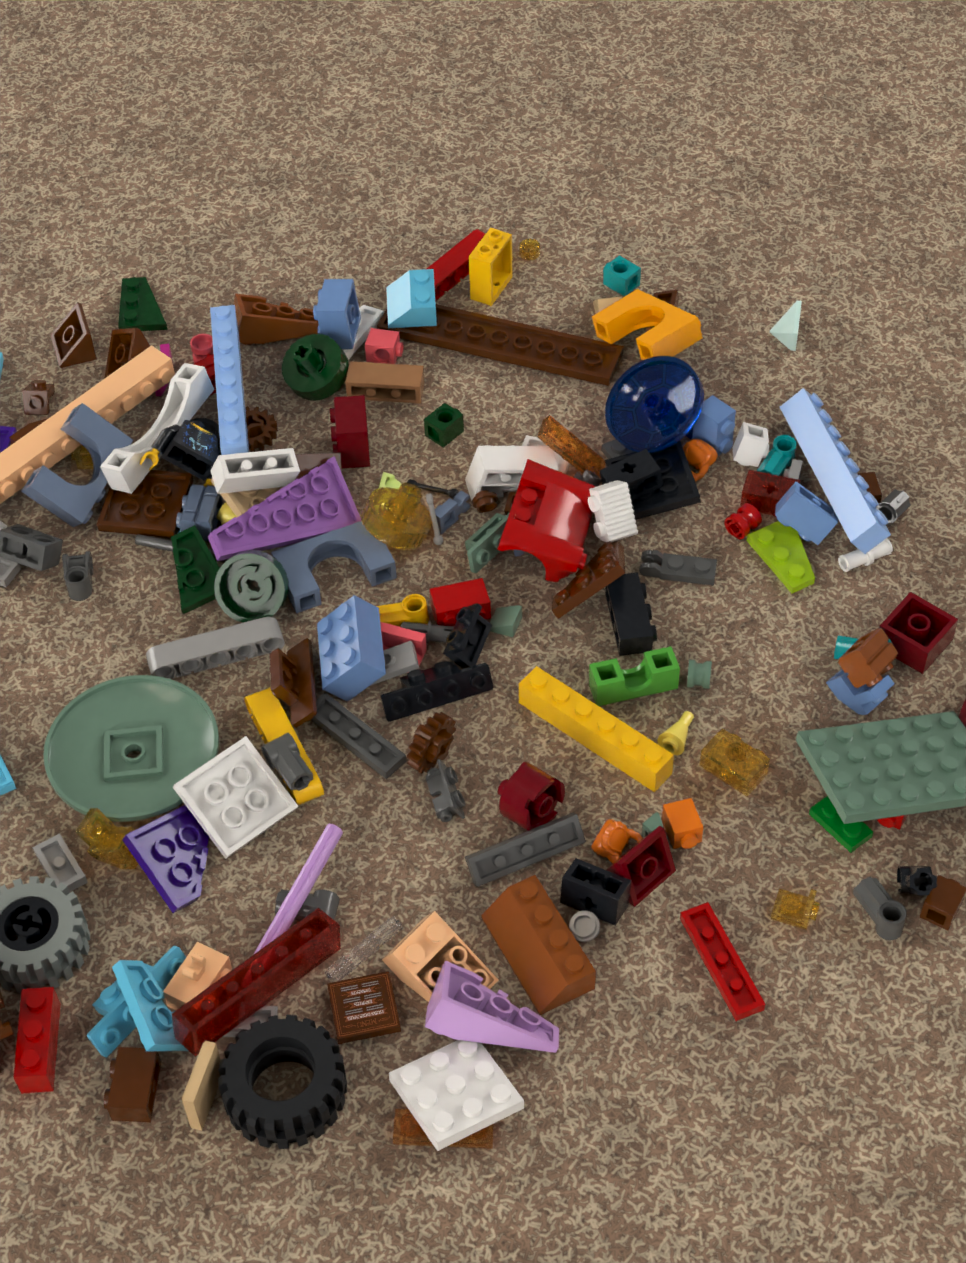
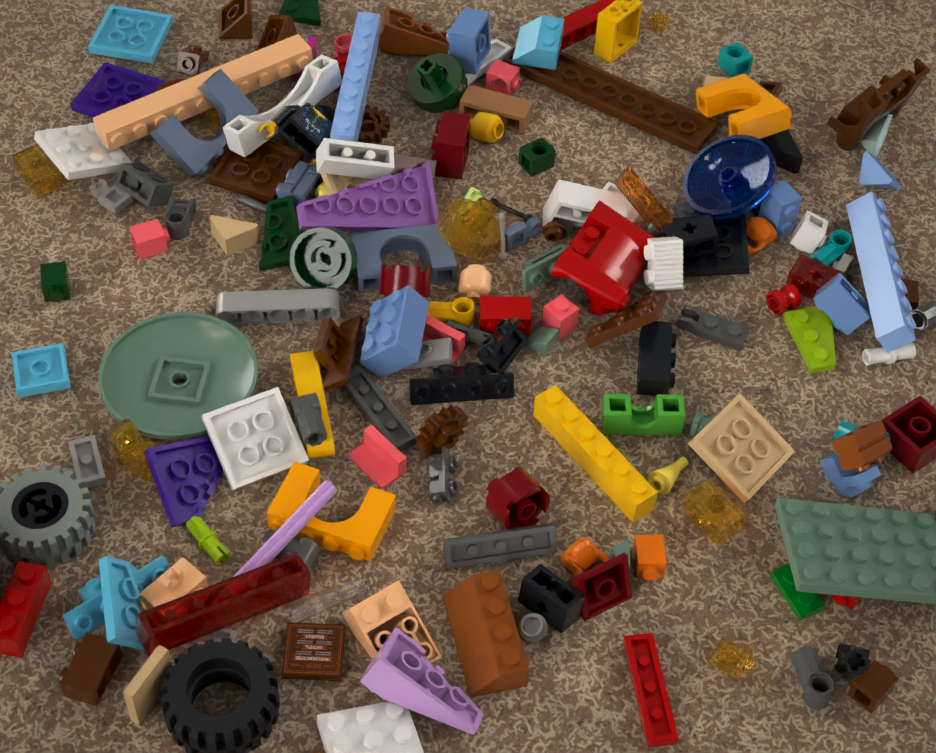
camera: 10 degrees right, 0 degrees up
(53, 606) = (149, 238): none -> coral brick
(143, 580) = (233, 234): none -> tan slope
(216, 917) = (208, 540): none -> lime axle
(343, 586) = (402, 276): none -> dark red brick
(371, 786) = (379, 458): none -> coral panel
(371, 876) = (355, 536): none -> light orange arch
(382, 404) = (486, 127): none -> yellow head
(418, 575) = (475, 282): none -> light nougat head
(519, 590) = (561, 315): none -> coral brick
(702, 362) = (784, 151): none -> black slope
(744, 688) = (741, 447): none -> tan plate
(780, 294) = (875, 104): none -> reddish brown piece
(799, 367) = (875, 174): none -> light blue slope

